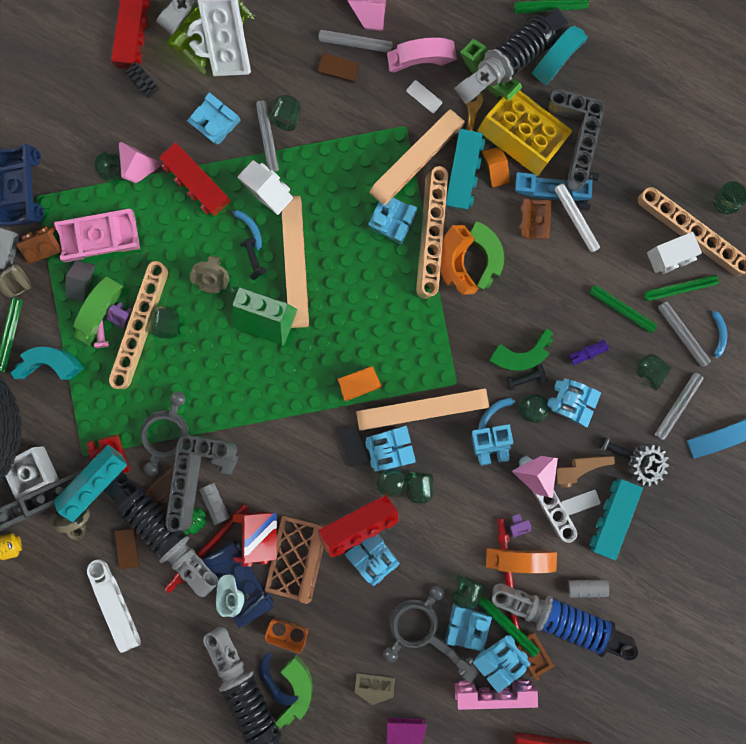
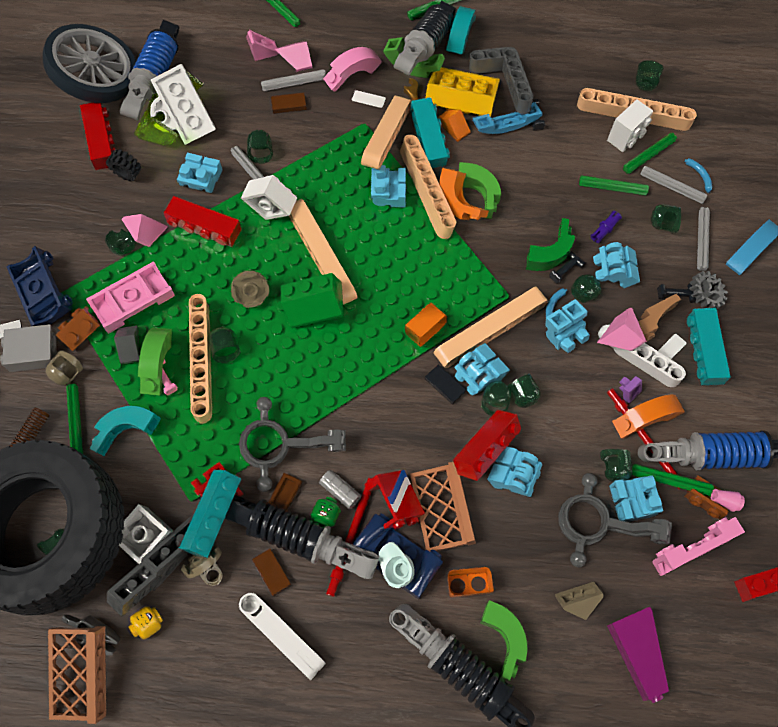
camera: 30 degrees left, 20 degrees down
(118, 316) = (177, 357): medium lavender tile -> none
(190, 475) = (306, 460): dark grey beam -> none
(252, 225) = (264, 237): dark azure piece -> none
(257, 270) = (291, 270): black piece -> none
(265, 676) = (490, 650): dark blue piece -> none
(503, 663) = (695, 515): medium azure hips -> none
(535, 219) = (507, 147): dark orange bracket -> none
(546, 669) = (729, 499): none -> bright pink cone
(577, 217) = (539, 133): white axle -> none
(588, 588) = (721, 415): light grey axle -> none

